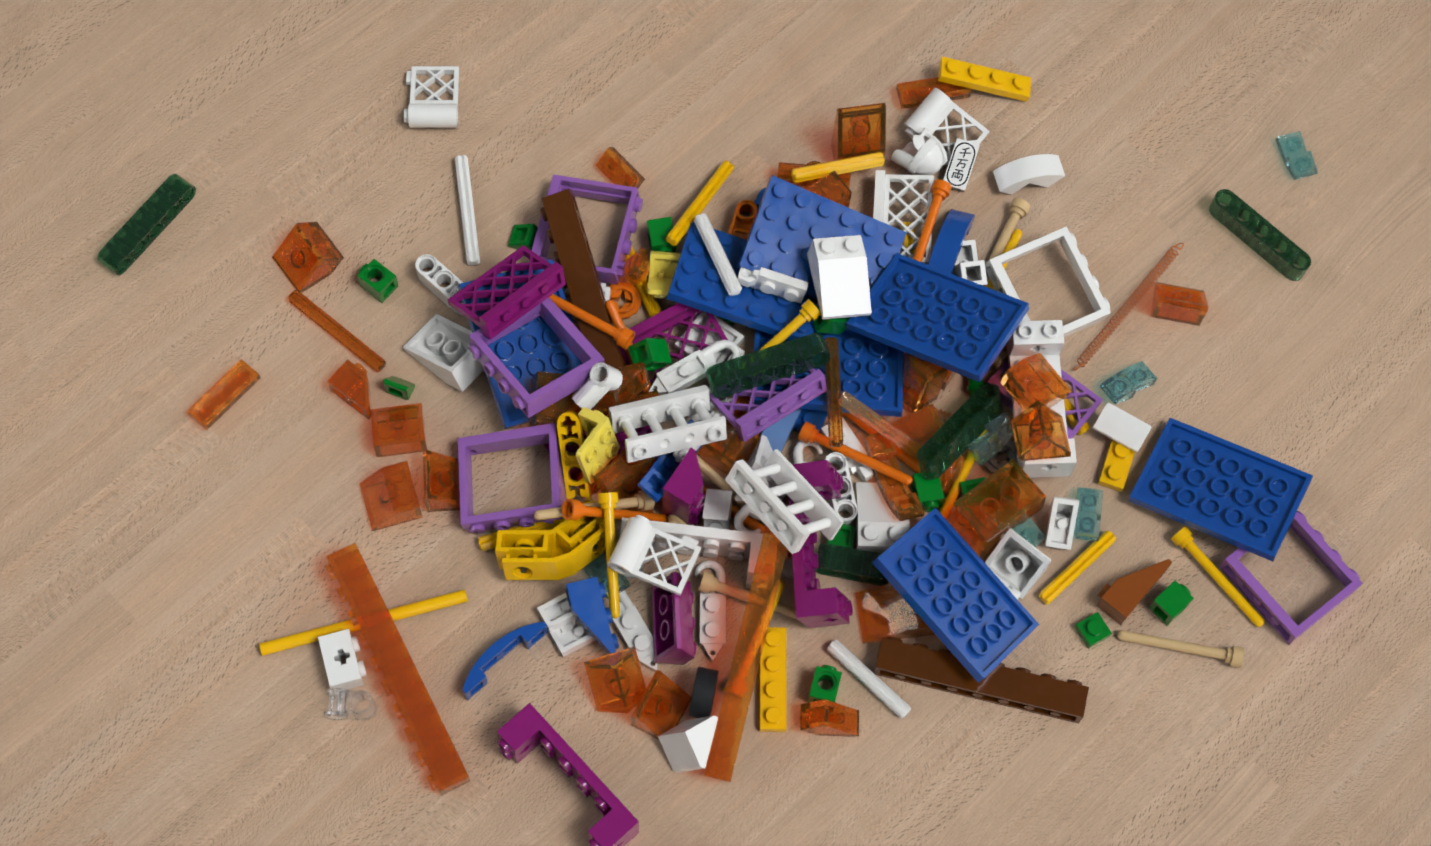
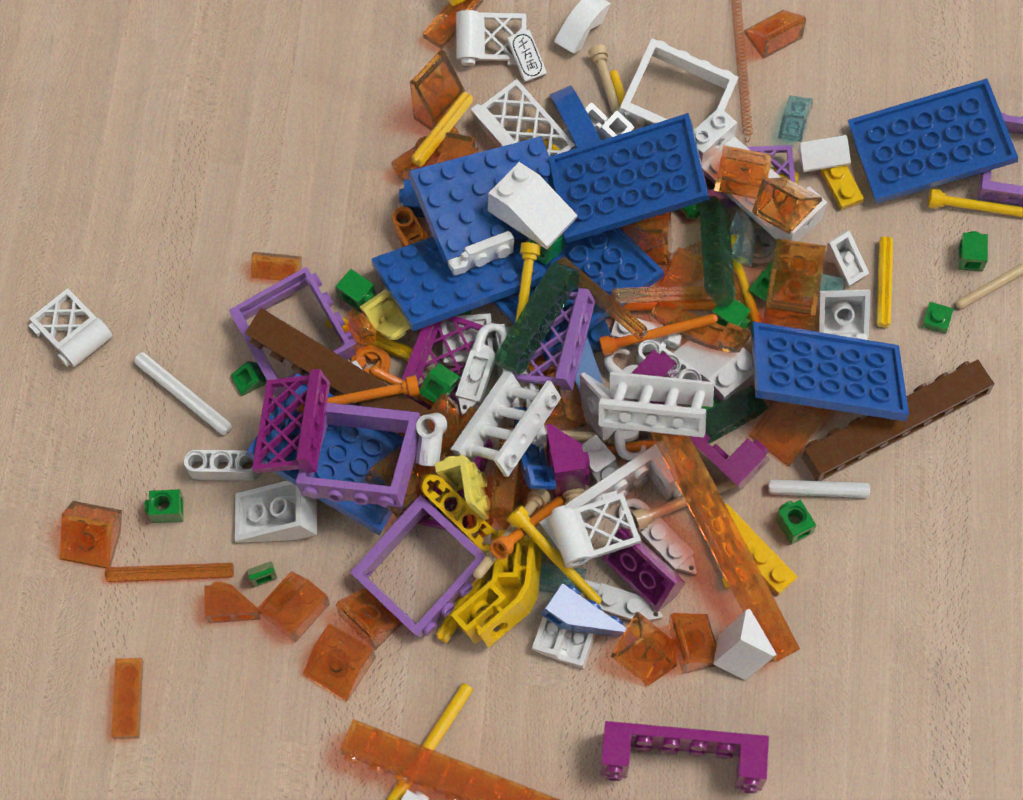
camera: 35 degrees left, 0 degrees up
(527, 635) = (543, 677): blue slope -> none
(700, 203) = (362, 240): yellow axle -> none
(703, 692) = (717, 601): black tyre -> none
(717, 254) = (420, 266): white axle -> none
(829, 719) = (820, 542): clear orange slope -> none
(921, 156) = (497, 72): white helmet -> none
(940, 190) = (533, 86): orange piece -> none
(1088, 514) = (864, 239): clear light blue slope -> none
(1128, 591) = (938, 273): dark orange slope -> none

